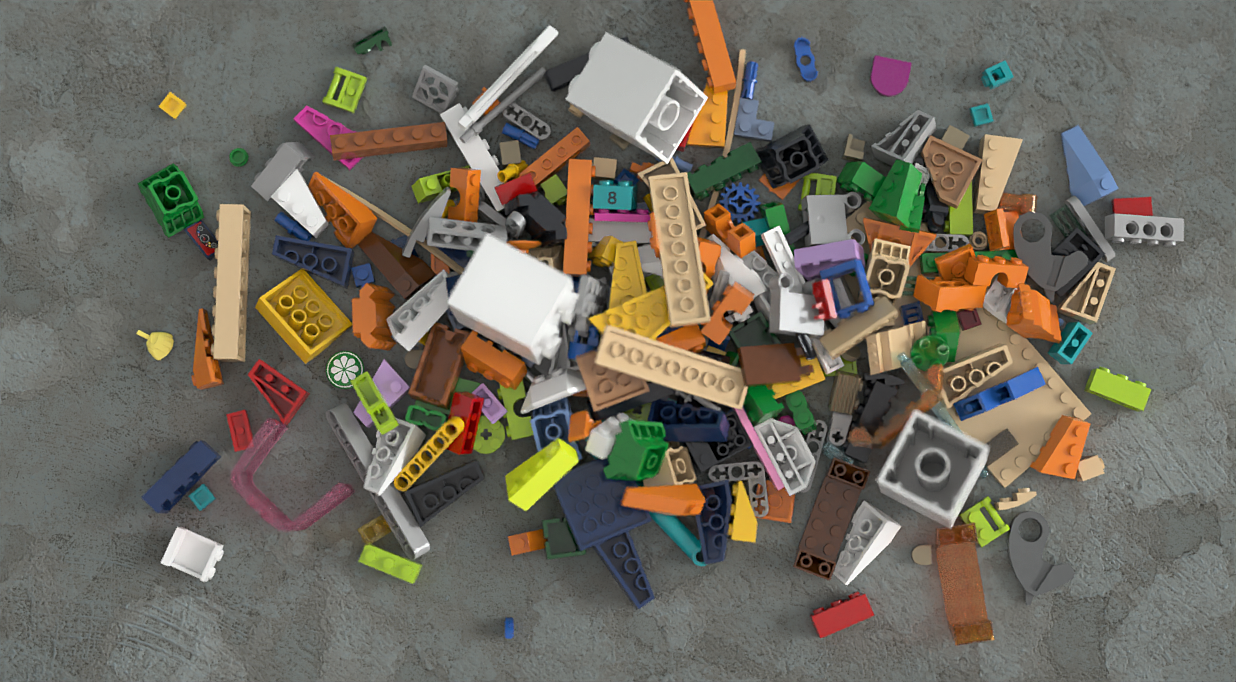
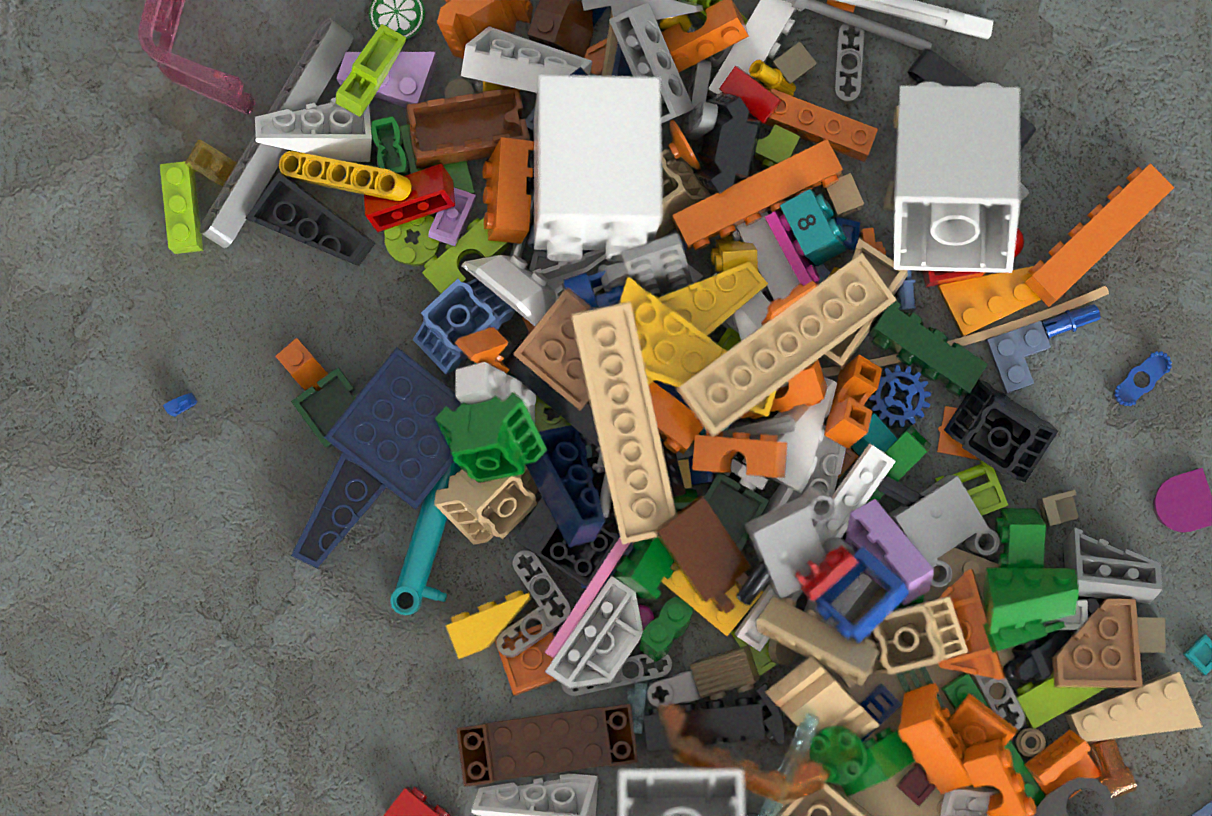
camera: 70 degrees right, 0 degrees up
(520, 135) = (825, 65): blue axle -> none
(539, 473) = (394, 329): neon yellow wedge -> none
(666, 500) = (450, 511): orange wedge -> none
(714, 520) = (467, 583): dark blue wedge -> none

